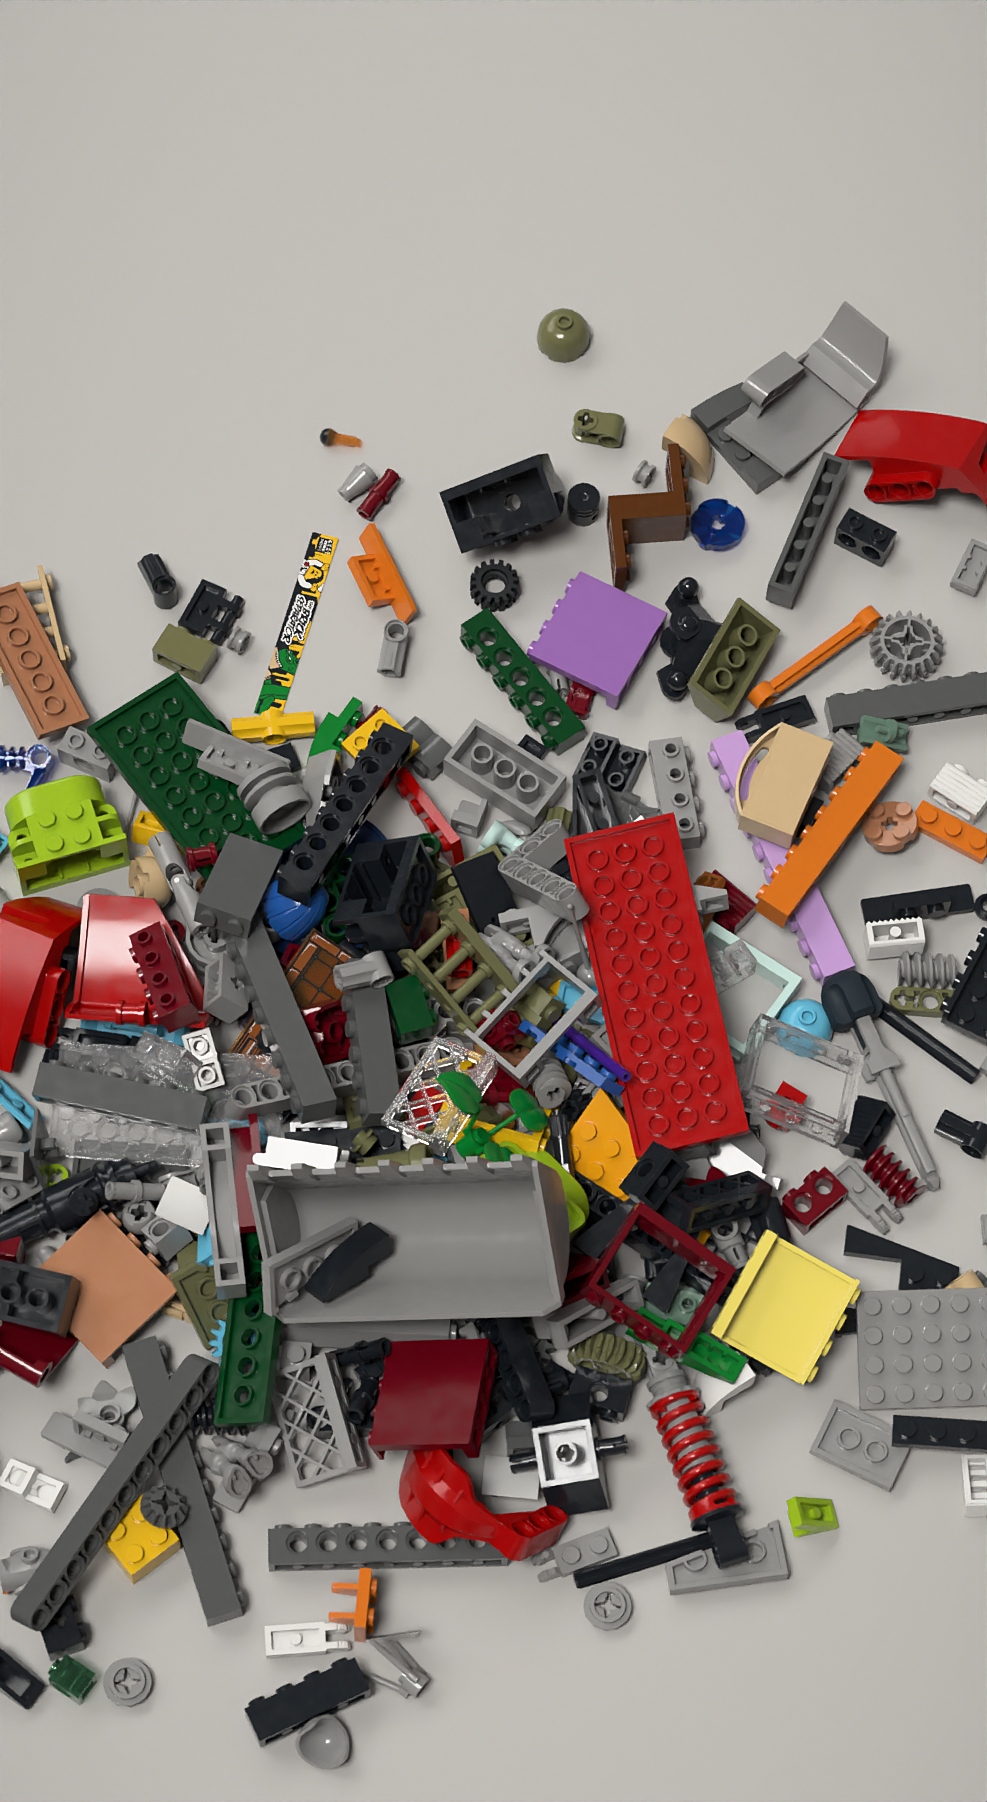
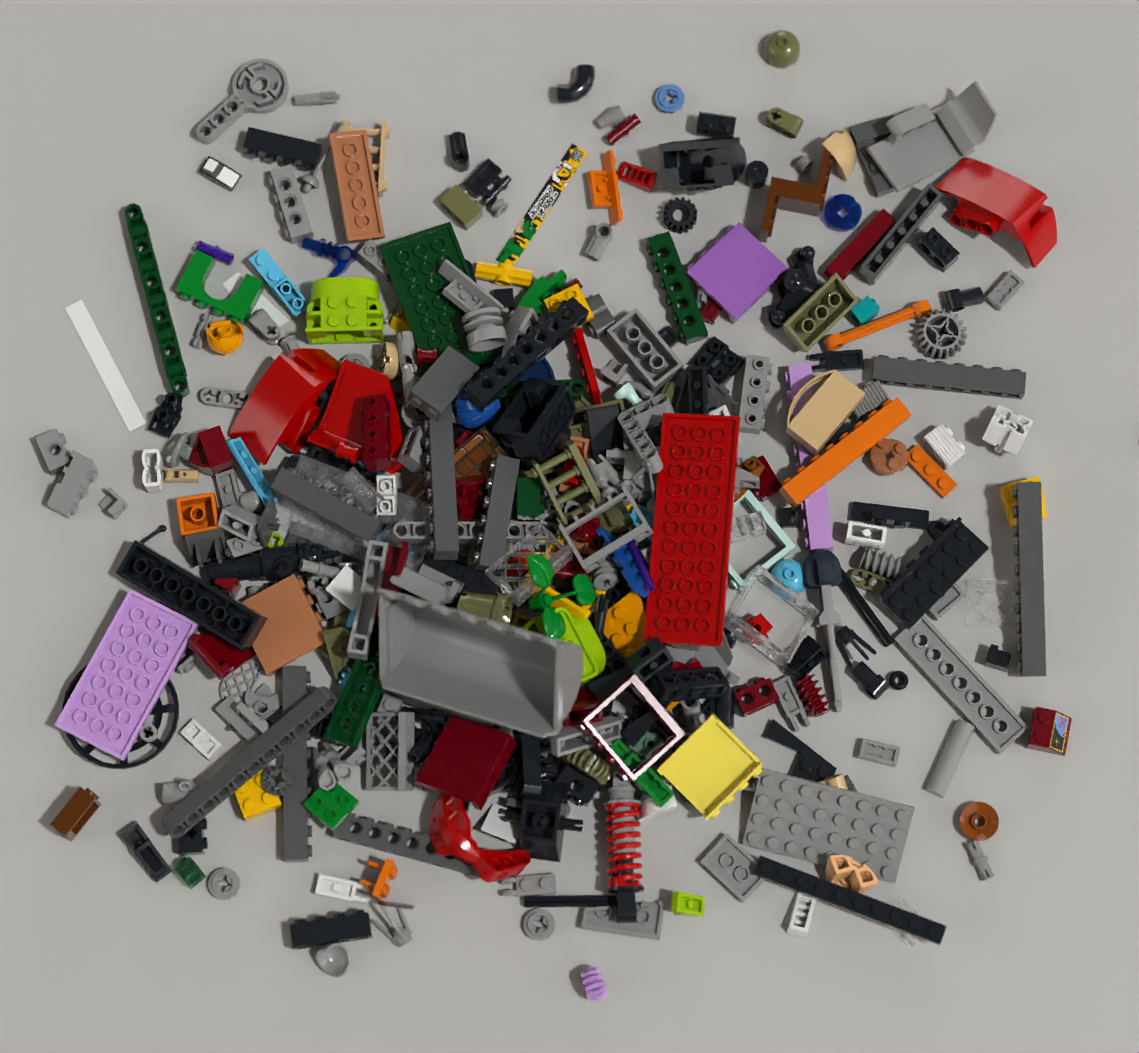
camera: 20 degrees right, 10 degrees up
(71, 1355) = (242, 683): none -> light grey window
(253, 1520) = (331, 805): none -> green plate
(293, 1267) = (407, 653): light grey wing -> none
(299, 456) = (579, 88): none -> black cylinder
(330, 437) = (603, 80): clear orange piece -> none
(349, 1262) = (435, 661): black slope -> none
(363, 1141) = (472, 579): olive plate -> none
(370, 970) = (510, 468): light grey piece -> none
(424, 560) = (639, 170): none -> red slope
(431, 427) = (673, 91): none -> medium blue gear
(502, 452) = (715, 125): none -> black brick
(714, 1665) = (594, 983): none -> lavender gear
(758, 558) = (861, 245): none -> dark red beam
(778, 945) = (789, 517): none -> black tile
(791, 644) = (864, 311): none -> teal brick
(887, 732) = (904, 391): sand green hips -> none
(912, 1083) = (847, 636): none -> black plant
(917, 594) = (958, 300): none -> black piece

